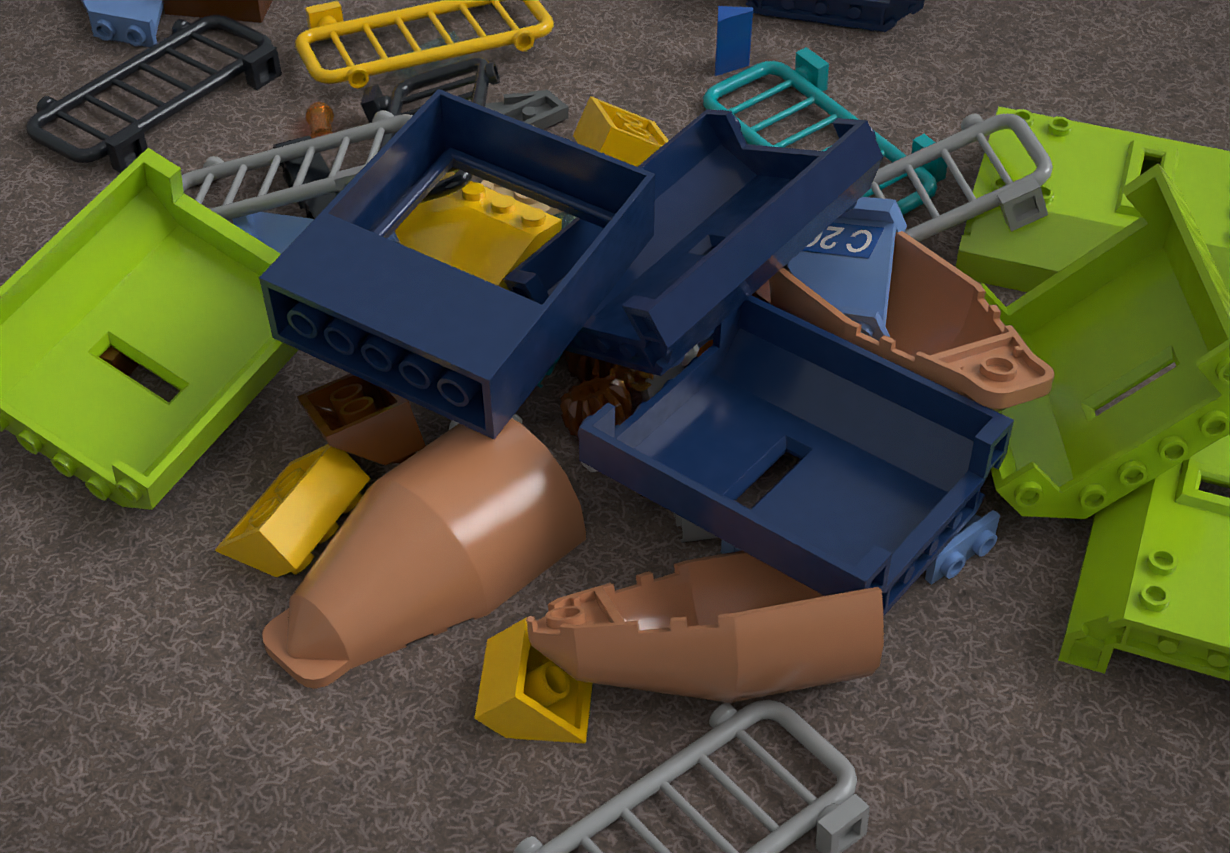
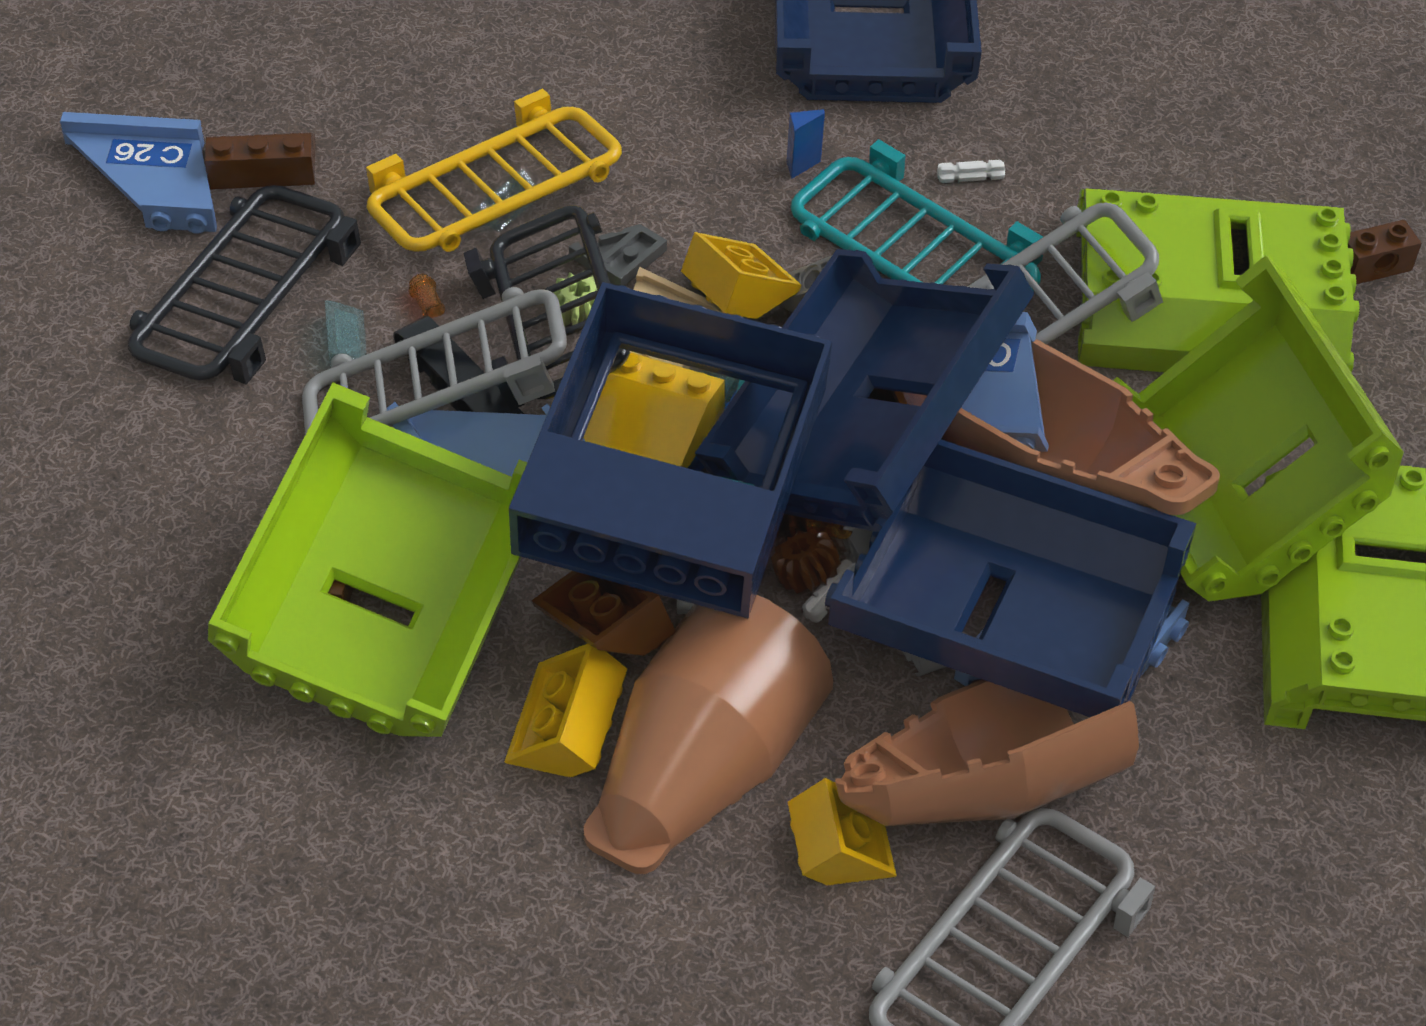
camera: 15 degrees left, 5 degrees up
(229, 138) = (344, 330): none -> clear light blue slope
(896, 91) = (971, 171): none -> white axle

